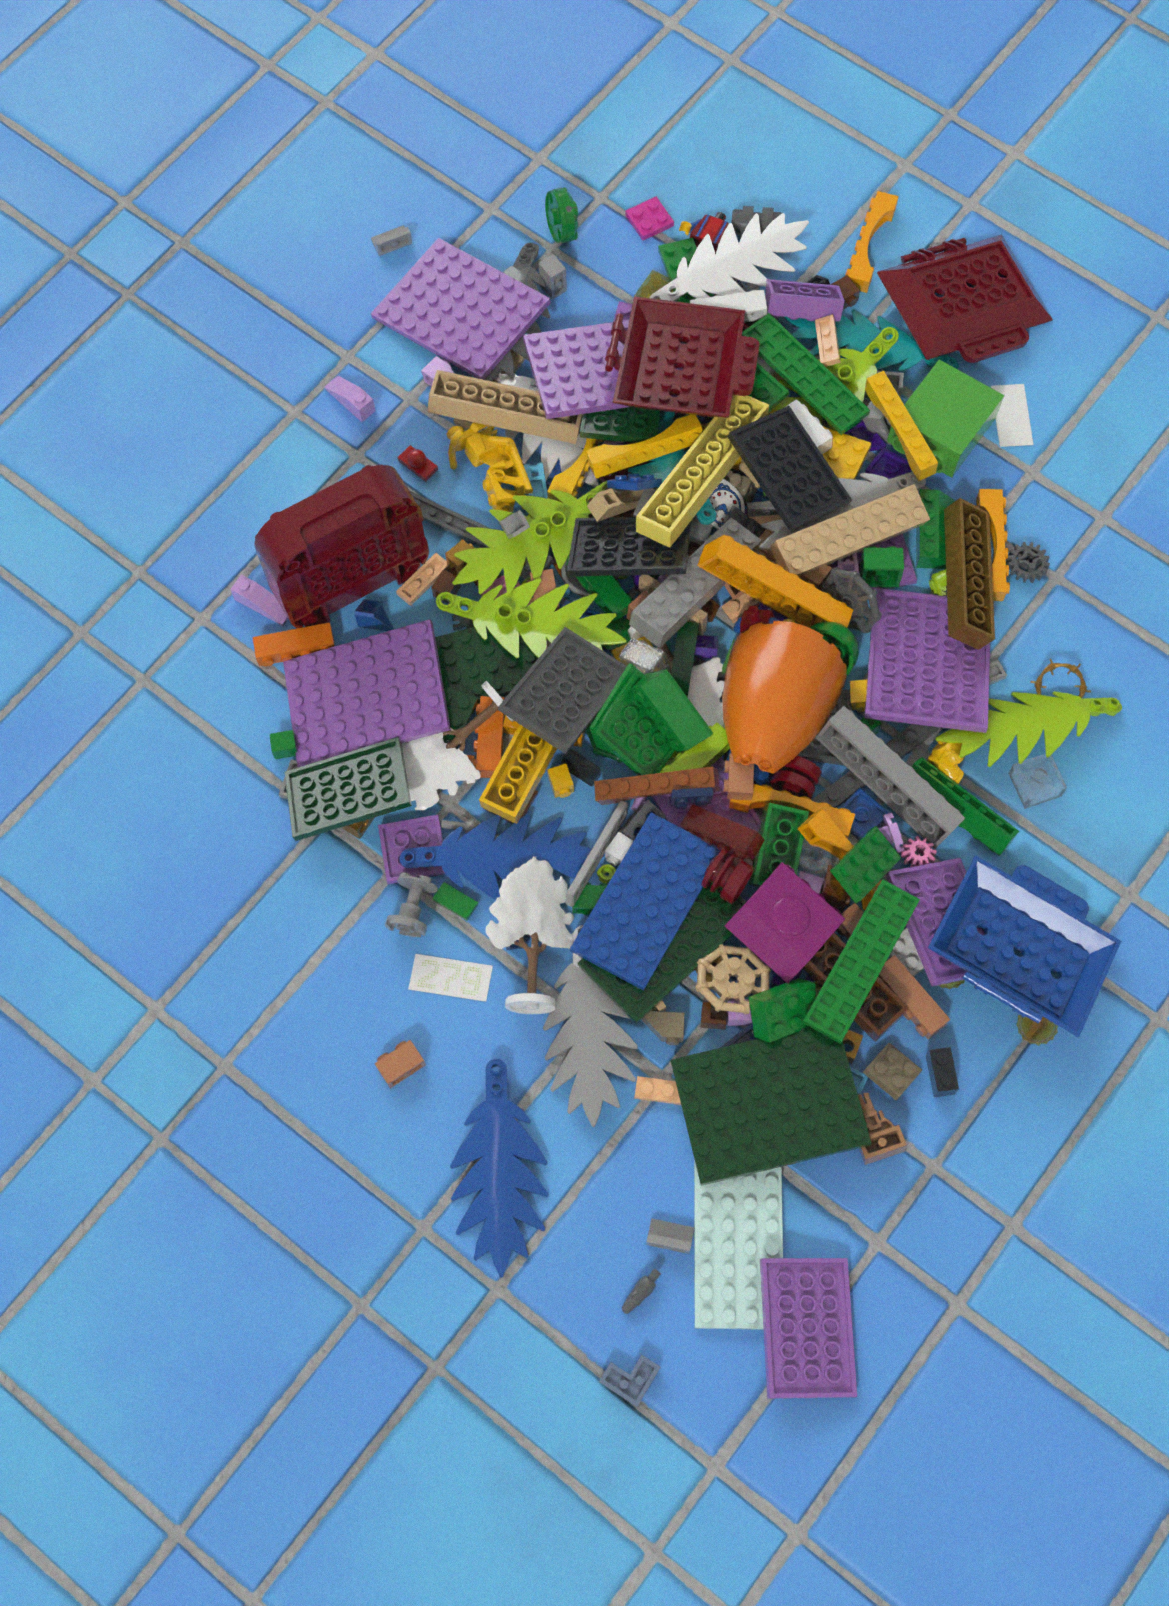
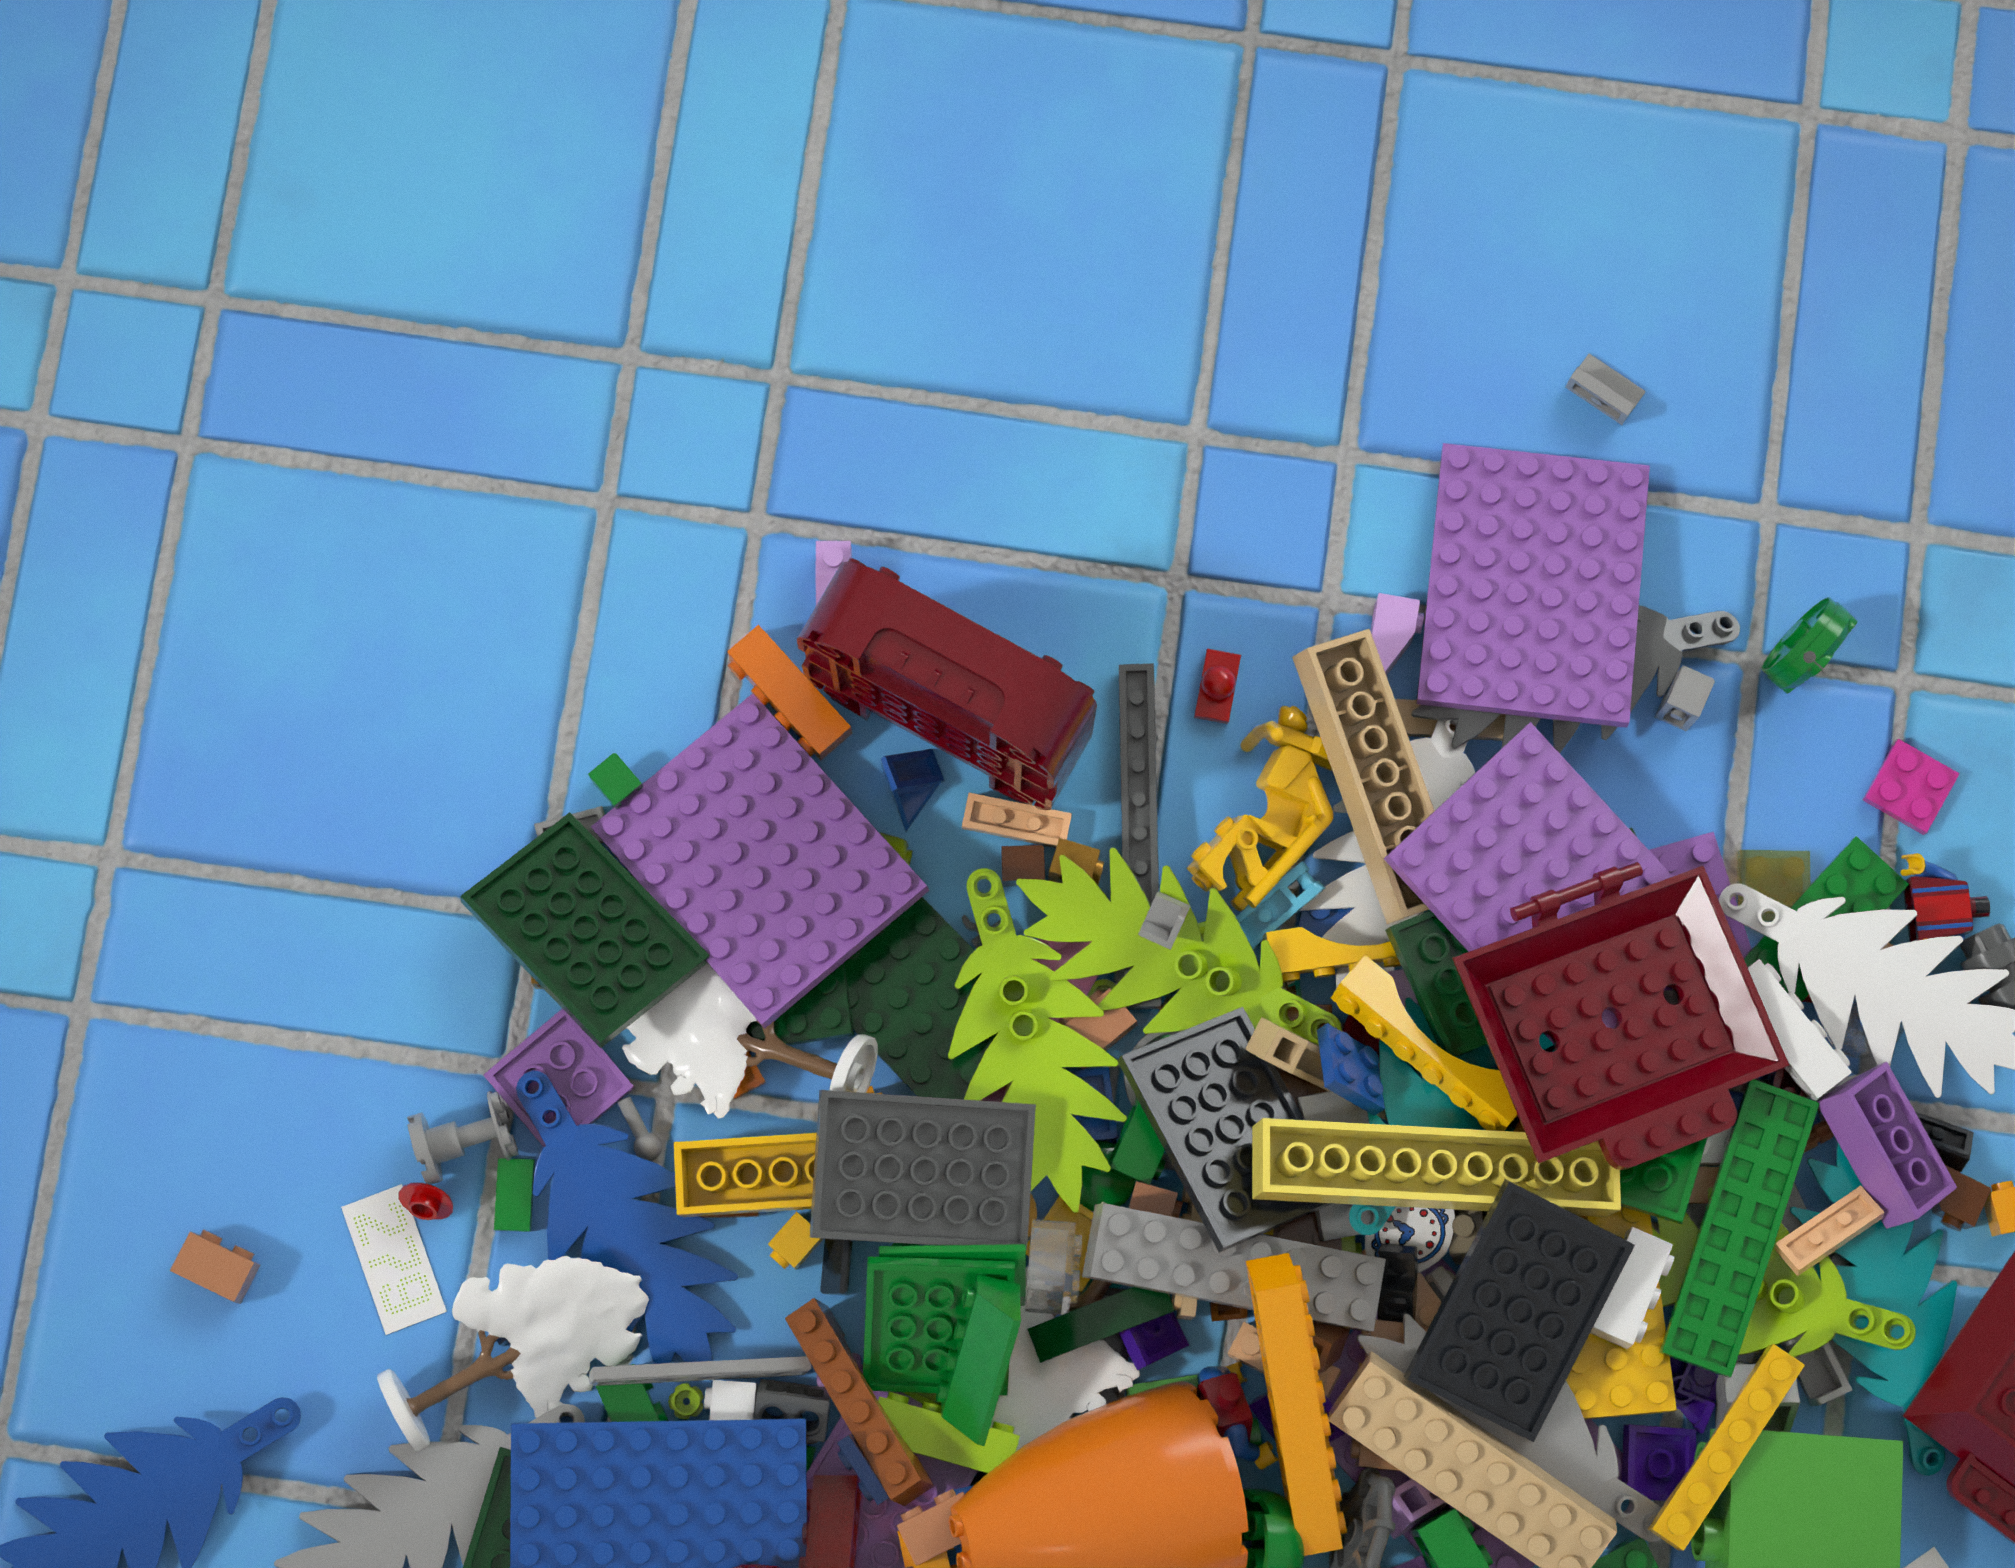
camera: 55 degrees right, 10 degrees up
(351, 397) = (1271, 506): lavender slope -> none
(428, 937) = (425, 1201): none -> red piece
(490, 740) = (787, 1096): orange brick -> none

